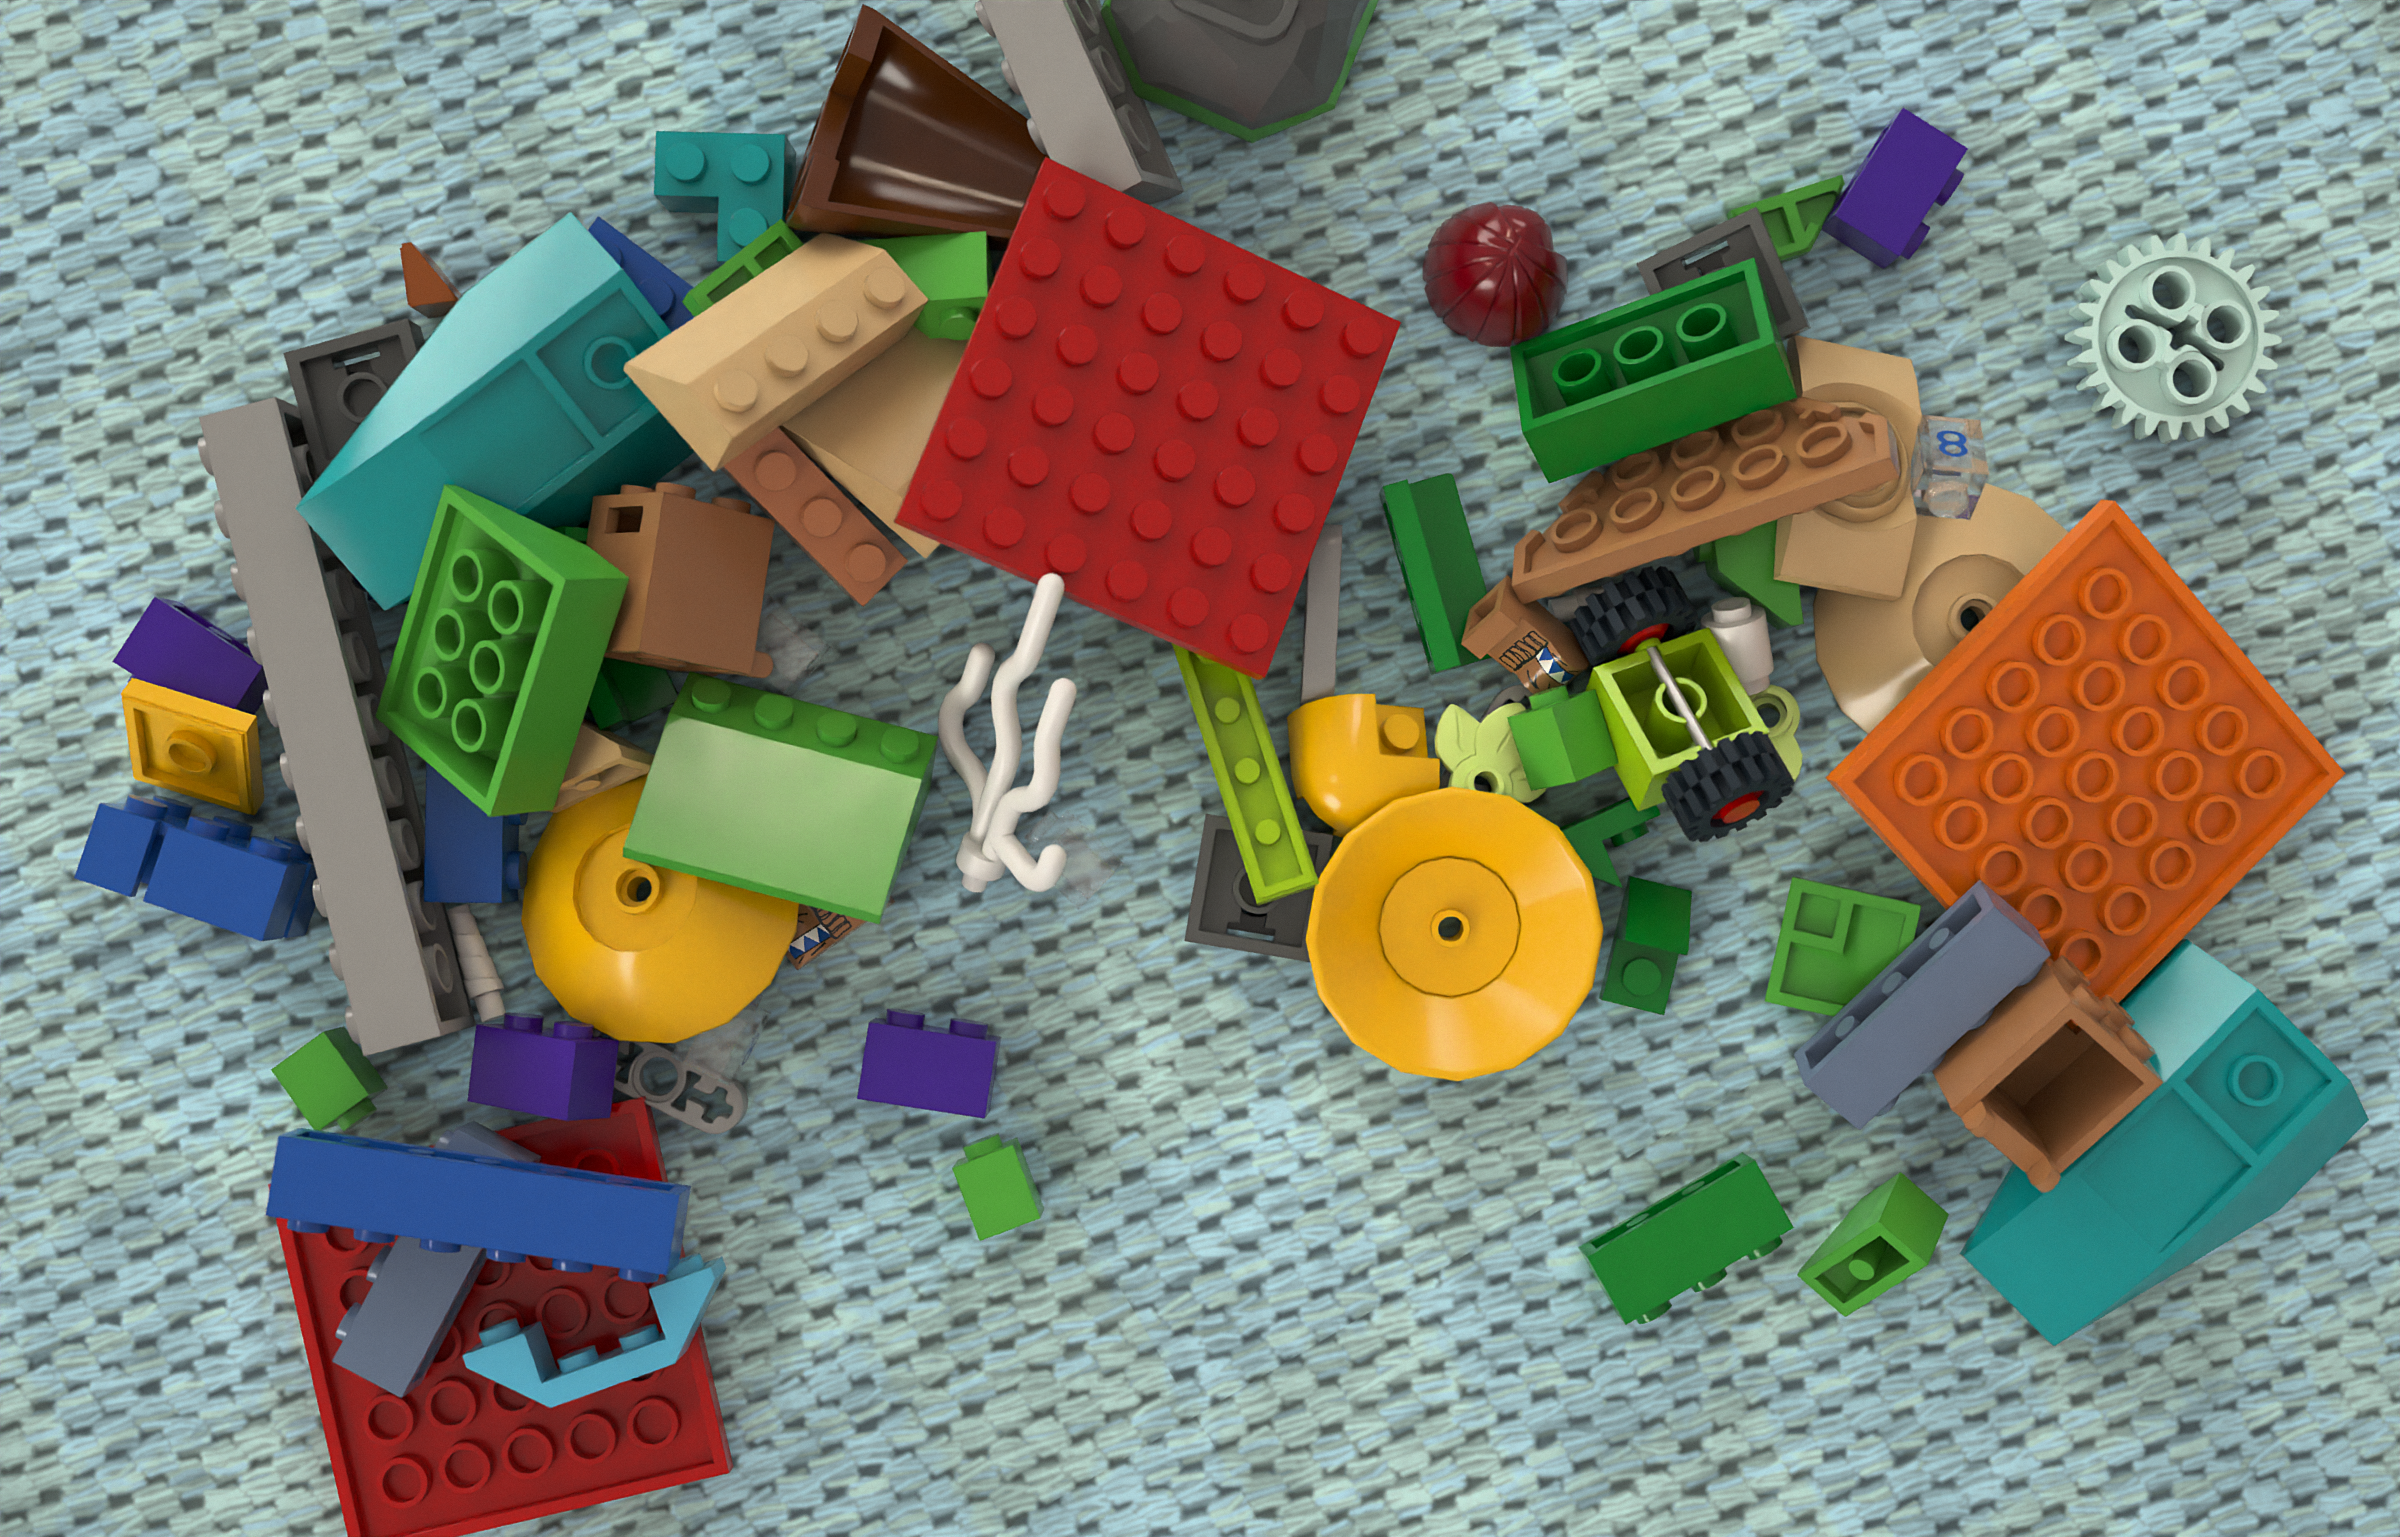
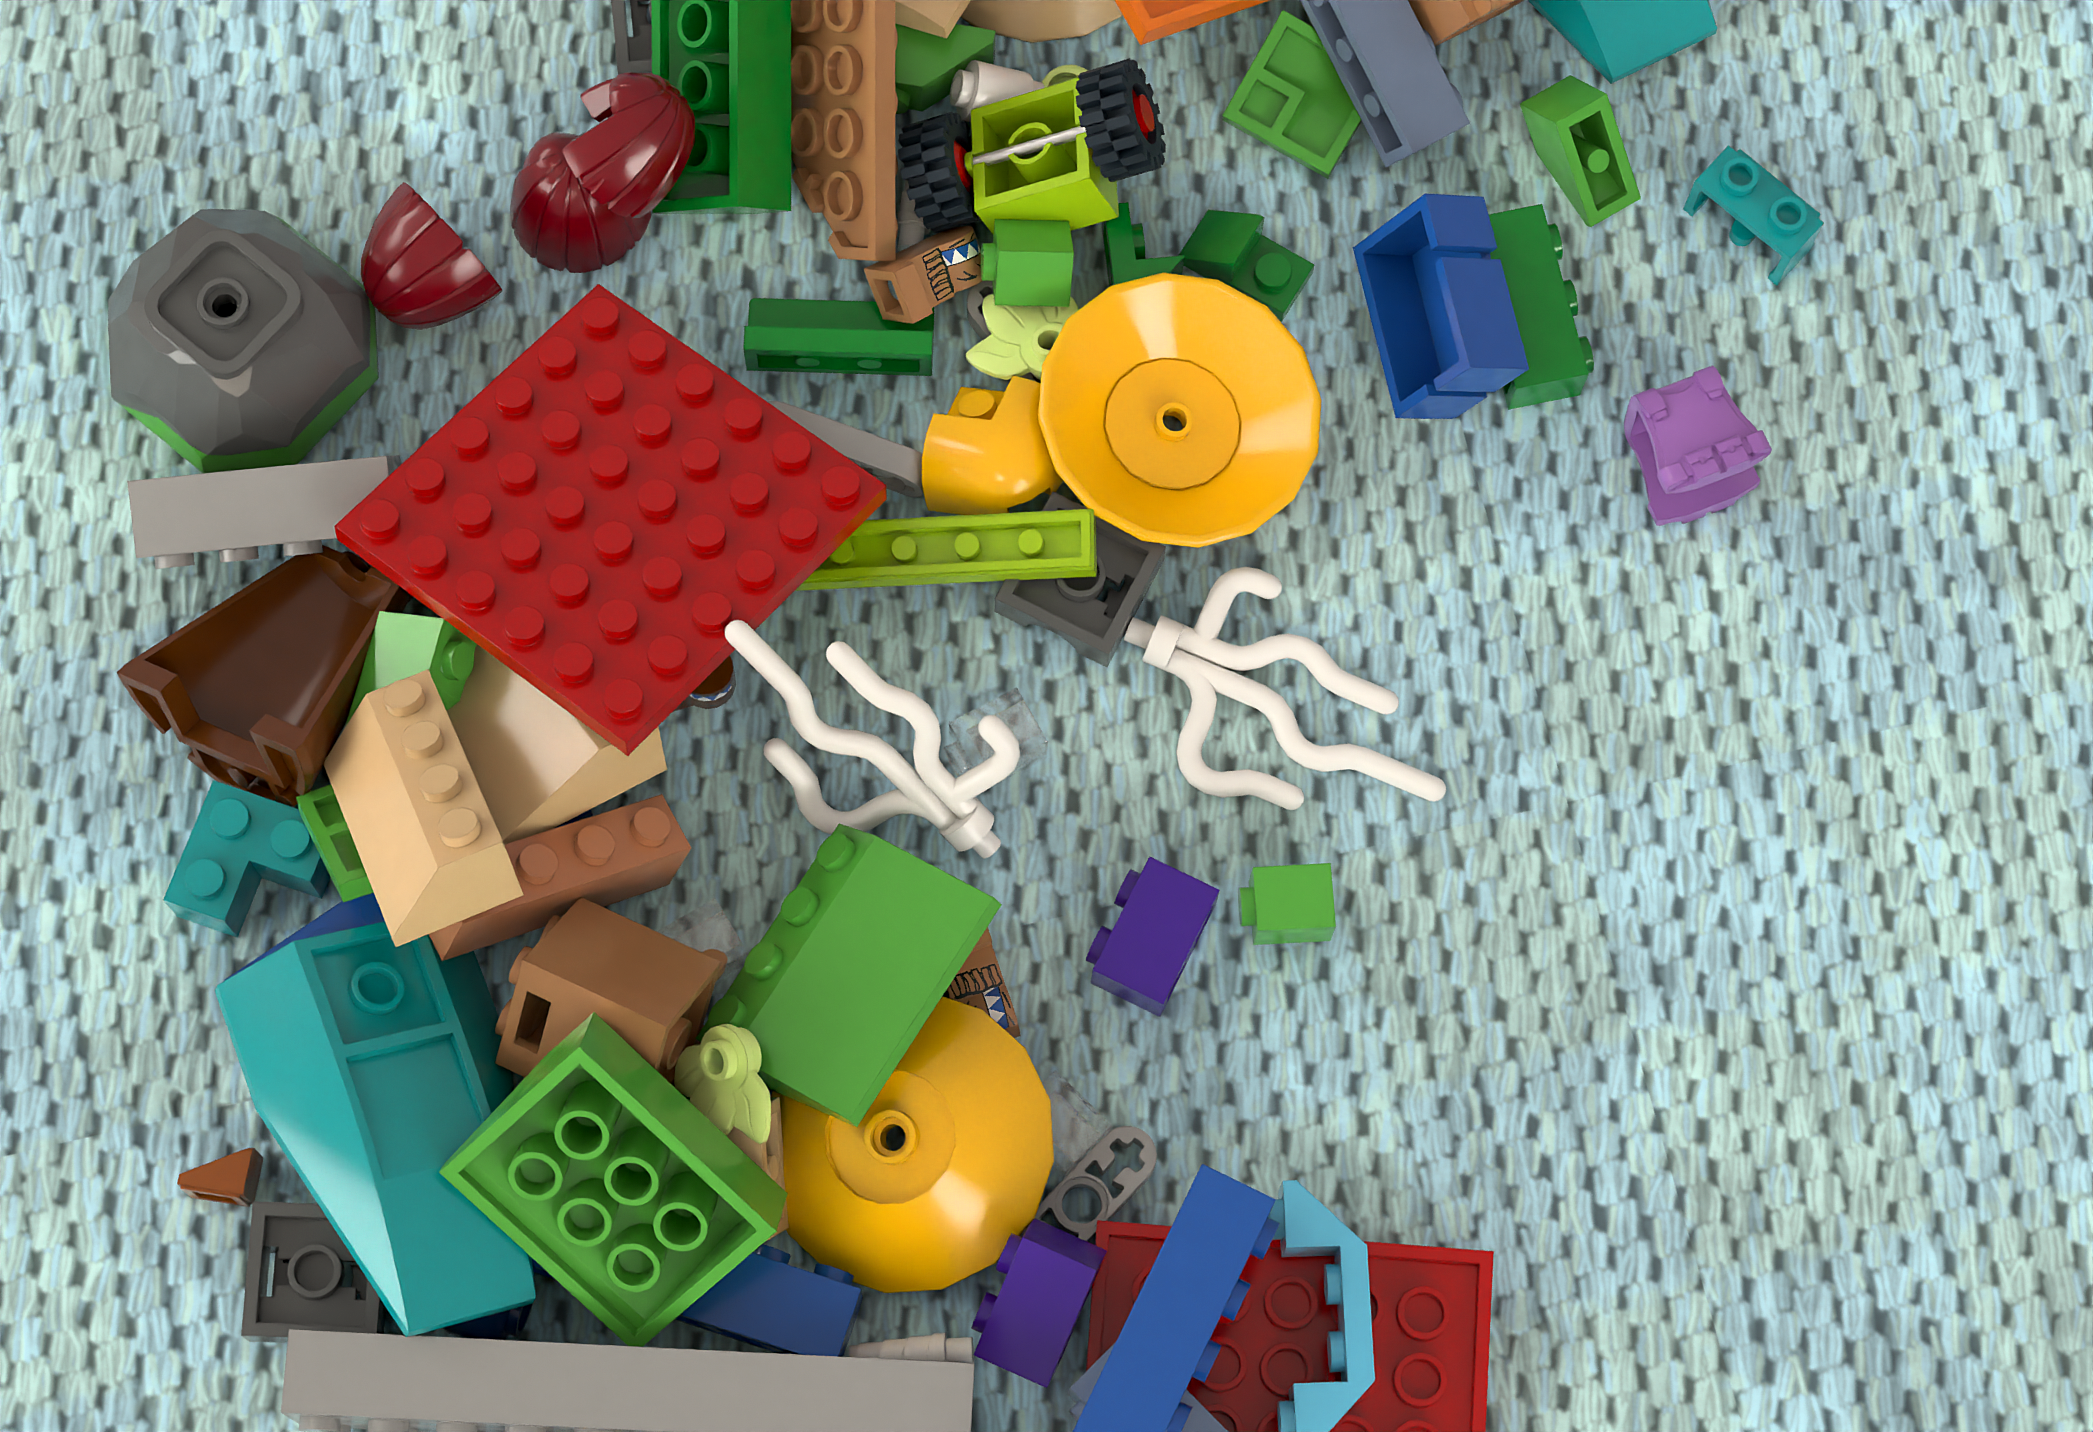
camera: 80 degrees left, 15 degrees down
(633, 715) = (725, 1082): none -> yellowish green plate
(1220, 1026) = (1201, 663): none -> white plant
(1361, 136) = (418, 266): none -> dark red hair
(1552, 316) = (640, 146): none -> dark red hair
(1586, 1446) = (1693, 447): none -> medium lavender piece
(1647, 1158) = (1440, 307): none -> blue piece
(1863, 1444) = (1760, 207): none -> teal window

